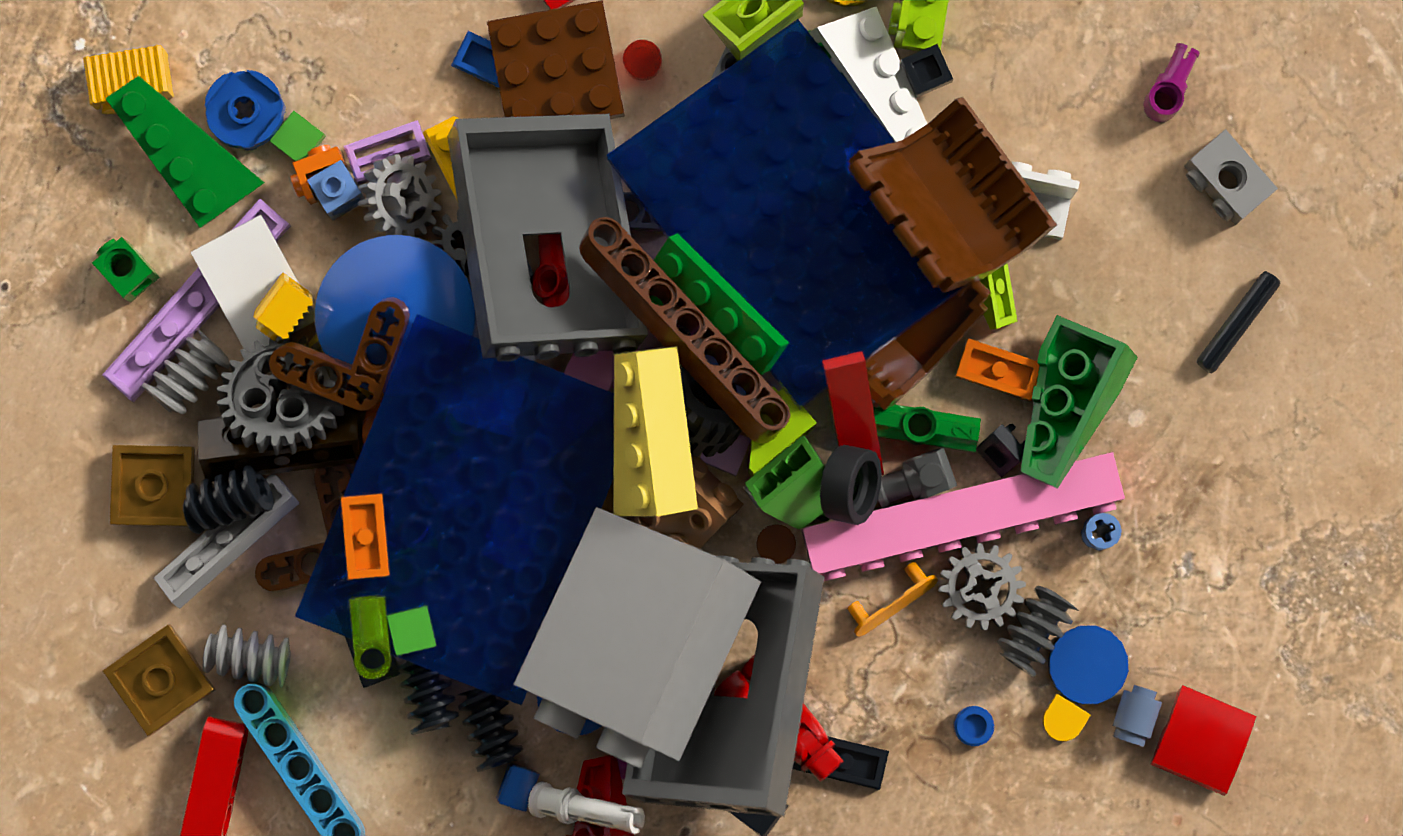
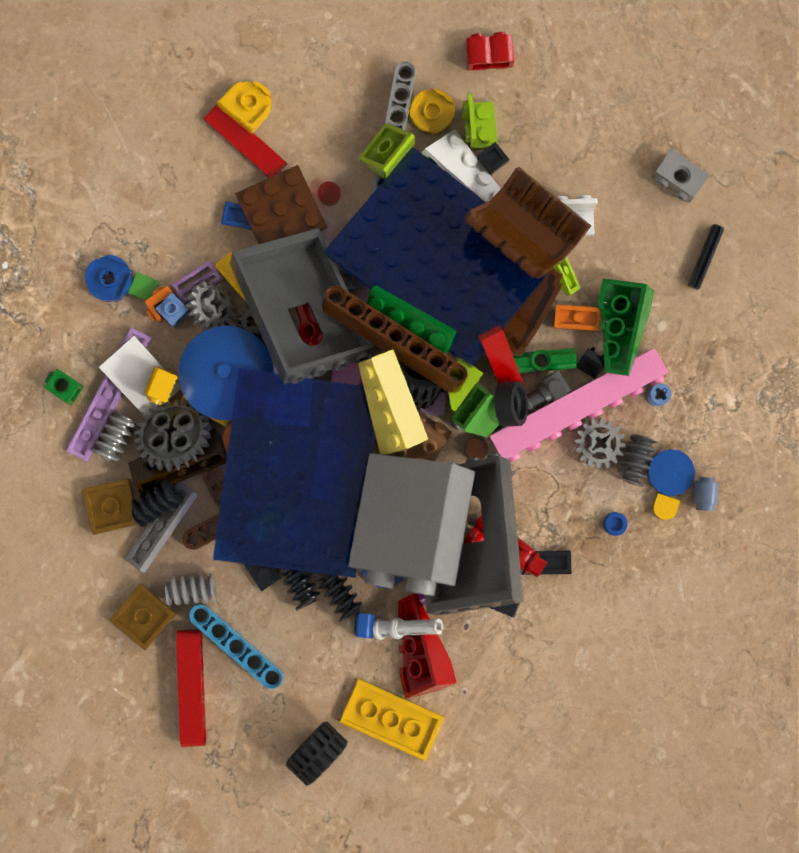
camera: 15 degrees left, 0 degrees up
(111, 71) = (37, 277): yellow brick -> none
(189, 160) = (85, 315): green wing -> none
(362, 368) = (214, 409): reddish brown beam -> none
(365, 536) = (241, 503): orange plate -> none
(370, 631) = (258, 557): clear neon green piece -> none
(411, 630) = (282, 550): bright green tile -> none
(868, 623) = (565, 451): light orange piece -> none
(1171, 83) = (633, 131): magenta pin -> none
(1203, 740) = (747, 498): red slope -> none

